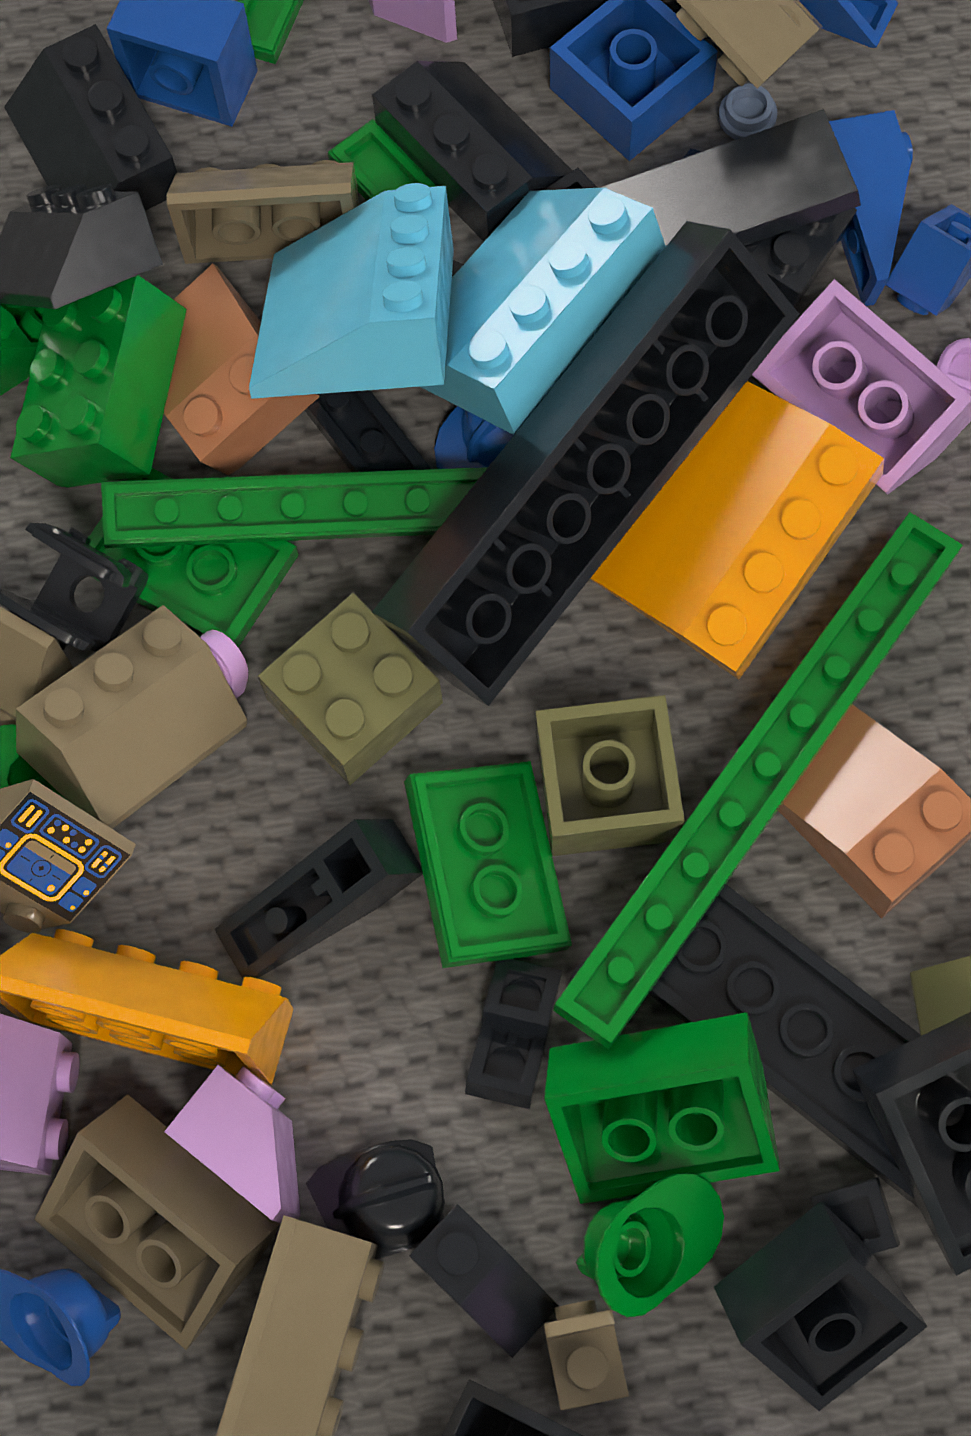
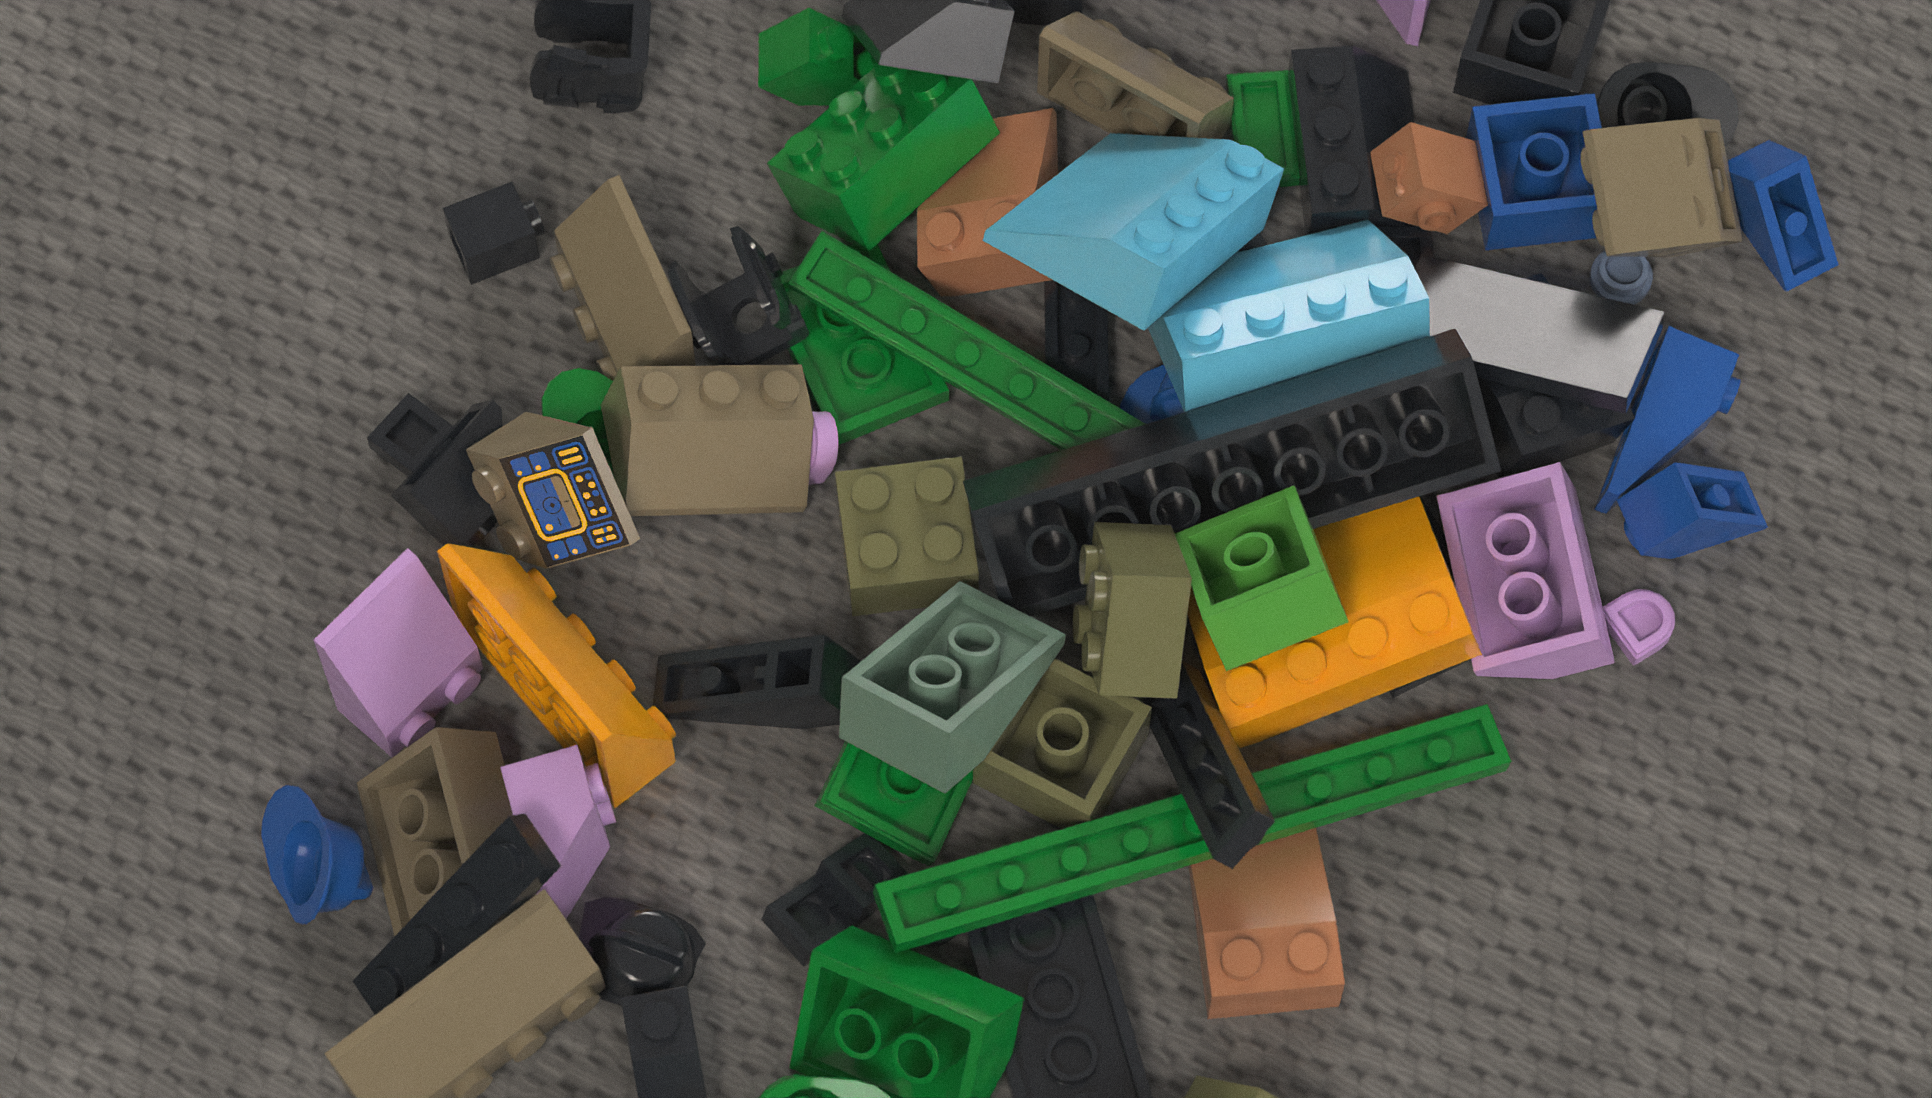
camera: 30 degrees right, 5 degrees down
(221, 1290) = (472, 901): none -> black plate
(489, 793) = (946, 685): none -> sand green slope
(555, 126) = (1428, 178): none -> nougat head
(597, 623) = (1133, 609): none -> olive brick
(682, 527) = (1260, 578): none -> bright green brick
(751, 712) = (1209, 769): none -> black plate

